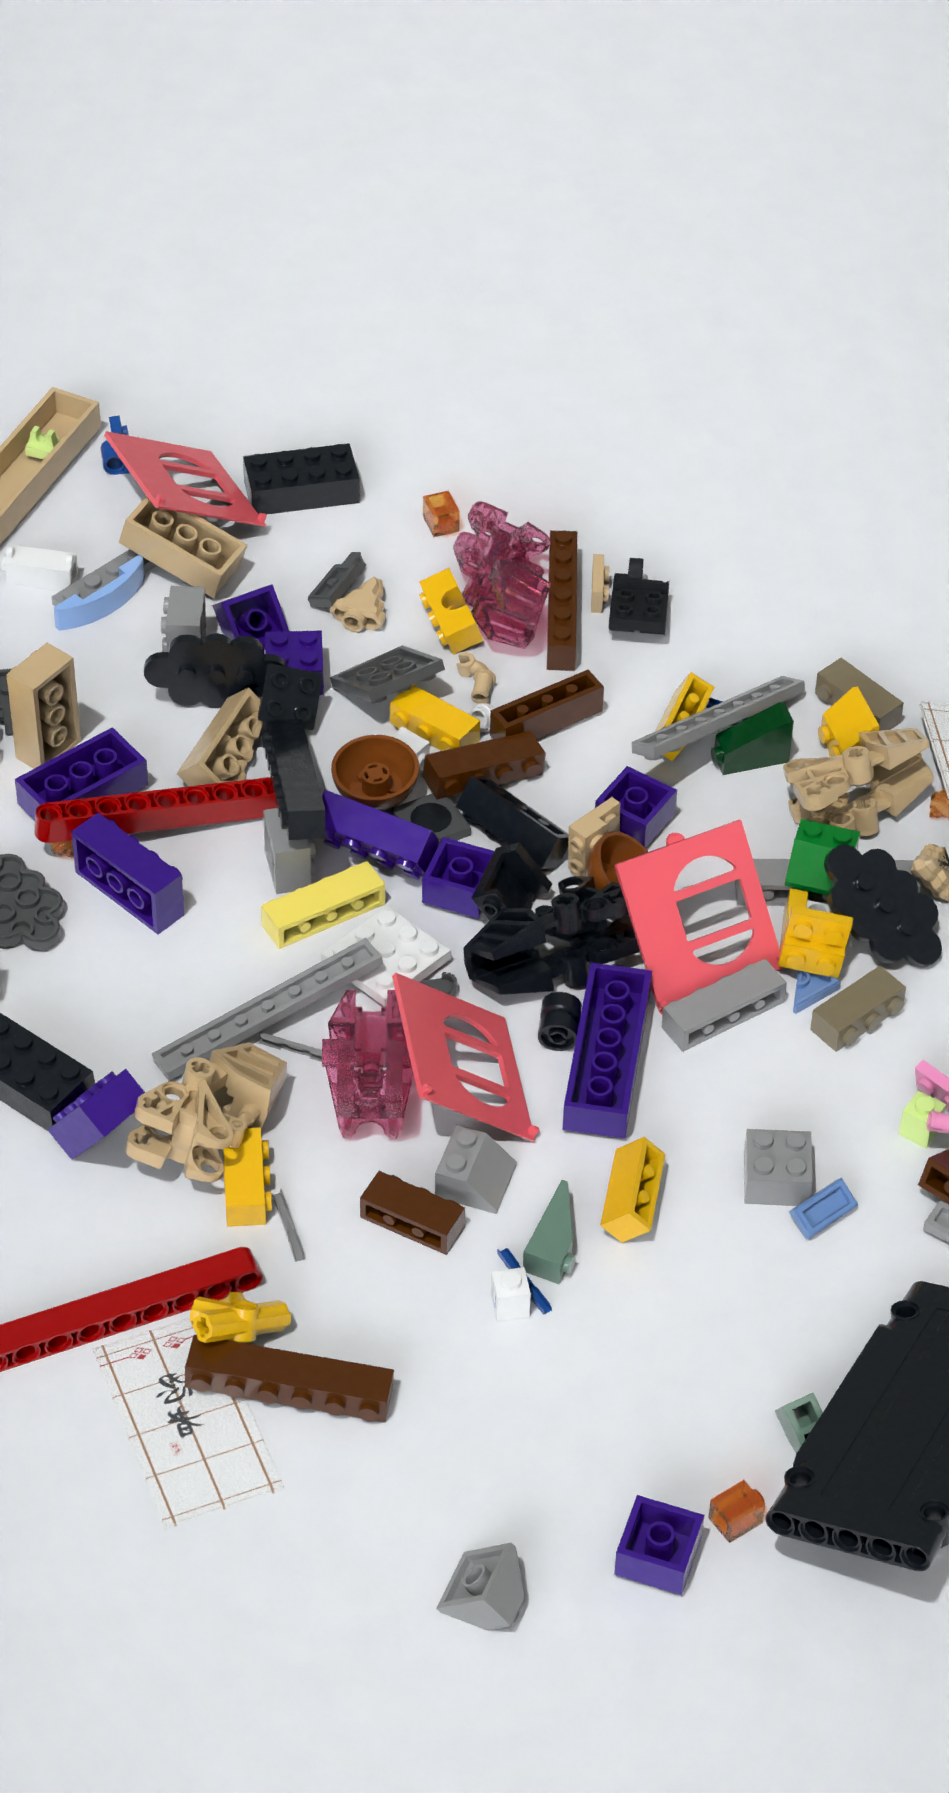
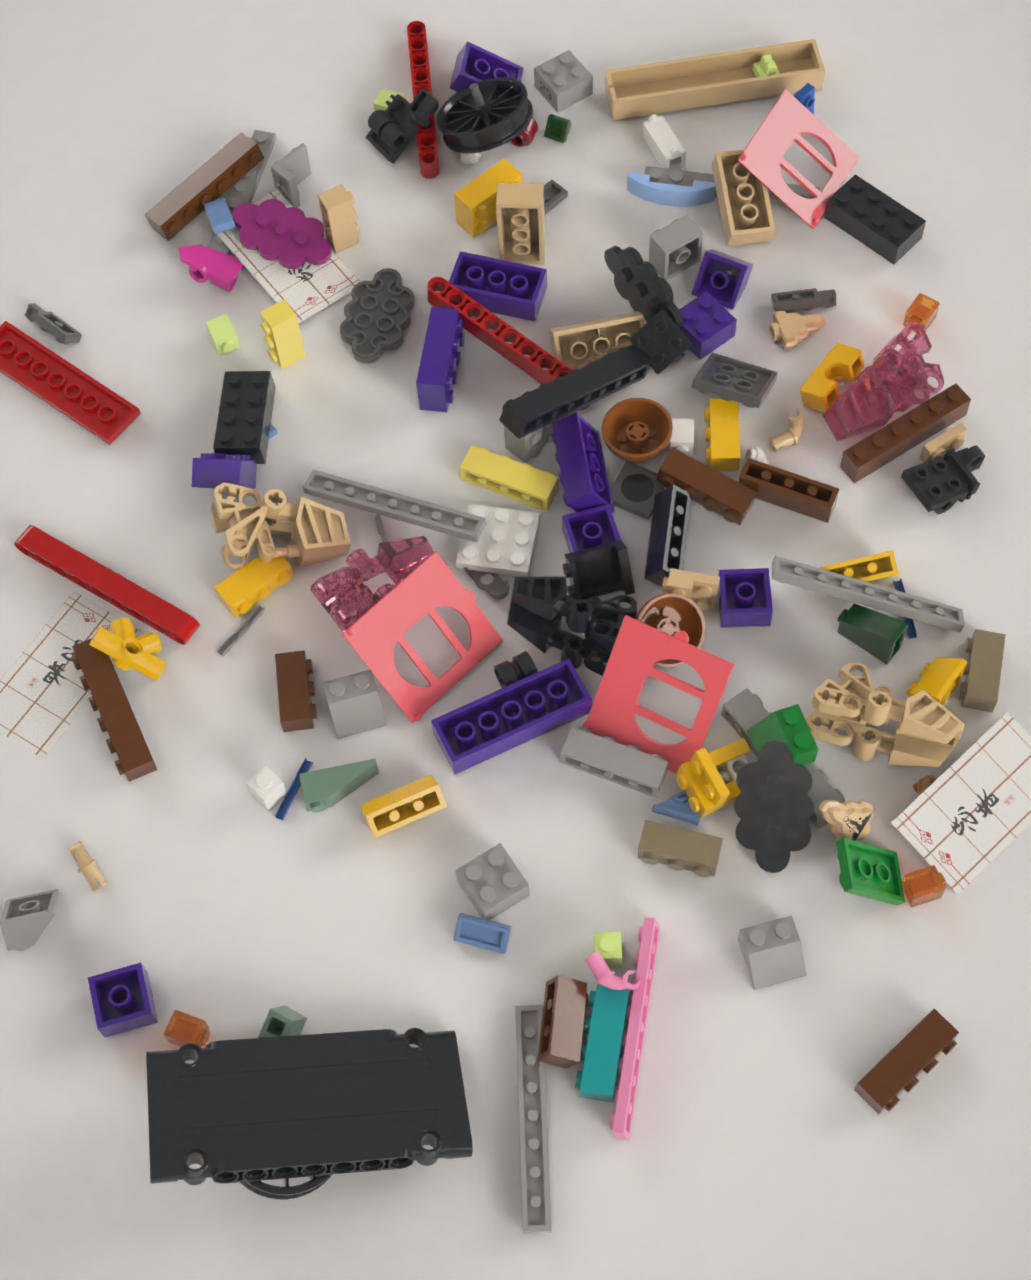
camera: 60 degrees right, 15 degrees up
(466, 1499) = (87, 865): none -> tan piece

